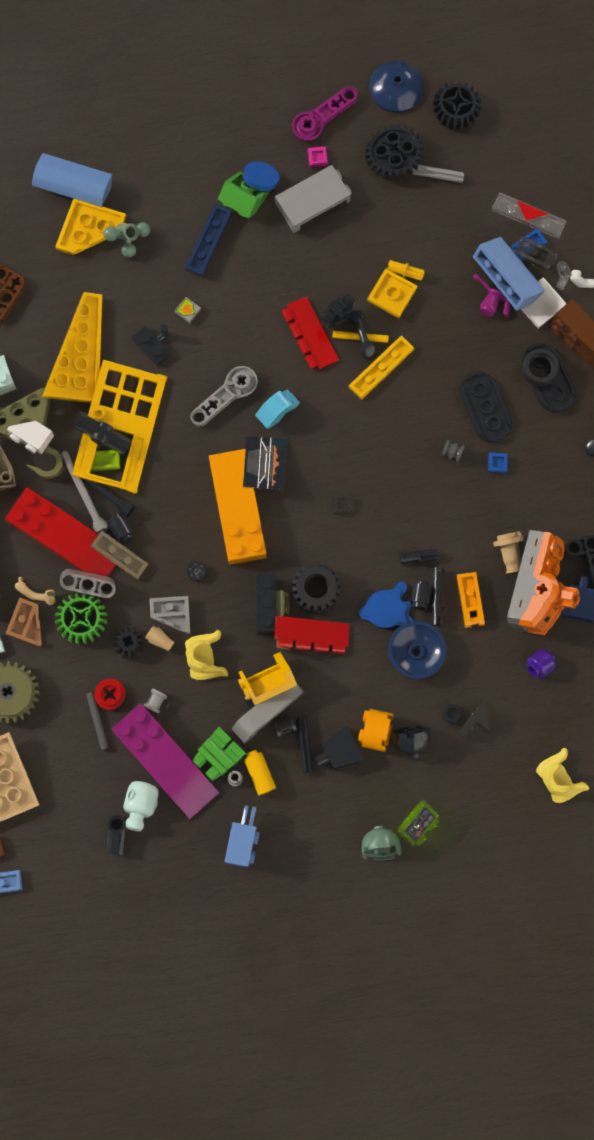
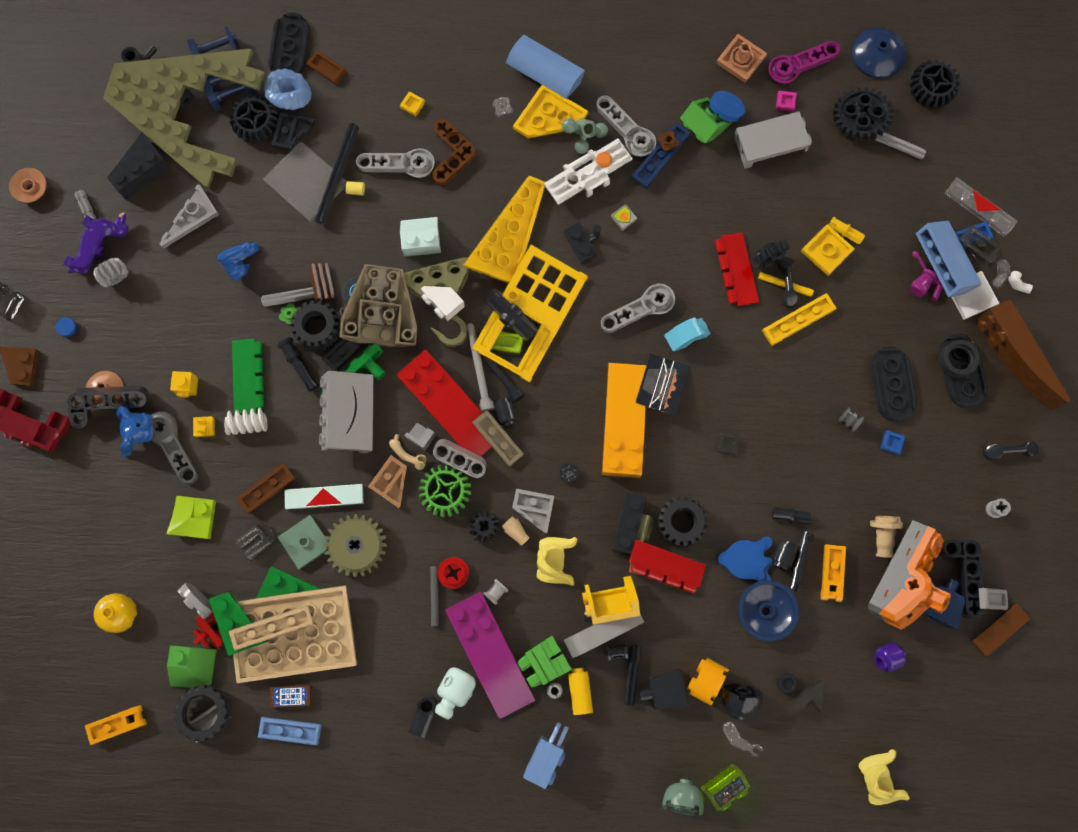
camera: 20 degrees right, 0 degrees up
(39, 224) = (502, 101): none -> clear plate
(44, 572) = (420, 436): none -> light grey panel
(154, 261) = (603, 163): none -> white piece
(169, 221) = (627, 128): none -> light grey beam
(211, 230) = (668, 145): none -> reddish brown plate
(263, 124) = (741, 58): none -> nougat plate
(418, 779) = (736, 740): none -> clear arm

